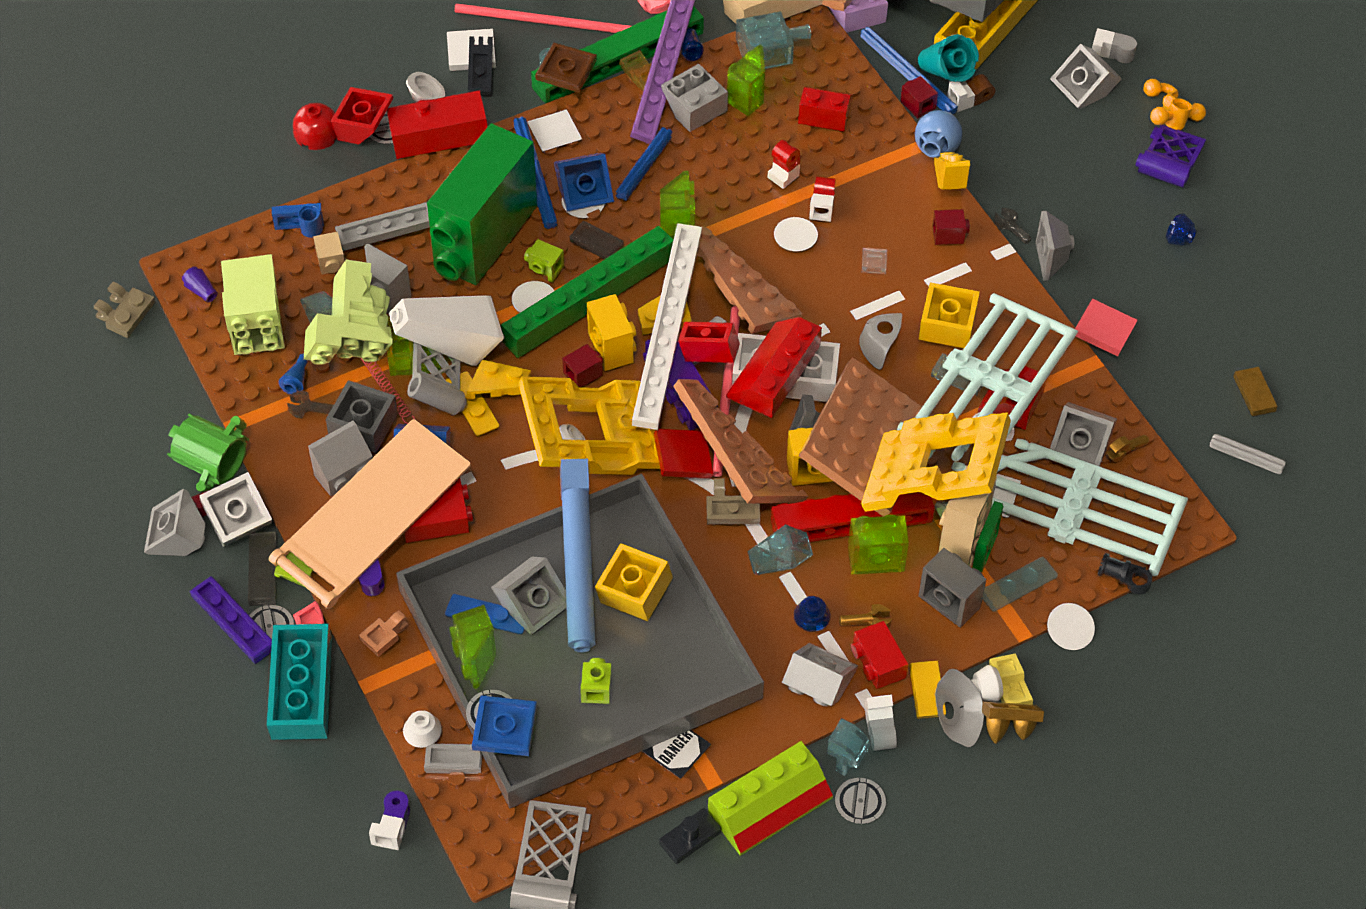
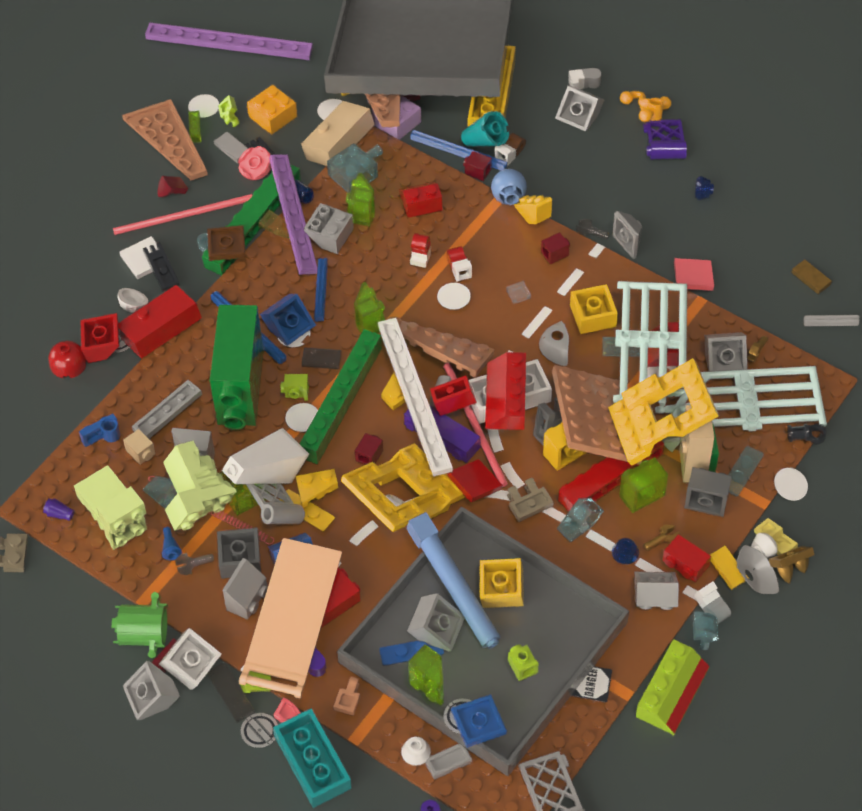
camera: 25 degrees left, 0 degrees up
(232, 619) = (232, 737): dark purple tile -> none
(554, 130) = (242, 291): white sticker -> none
(611, 331) = (376, 416): yellow brick -> none
(690, 835) = (634, 737): black tile -> none
(739, 452) = (512, 461): nougat wing -> none
(860, 800) = (727, 661): light grey sticker -> none

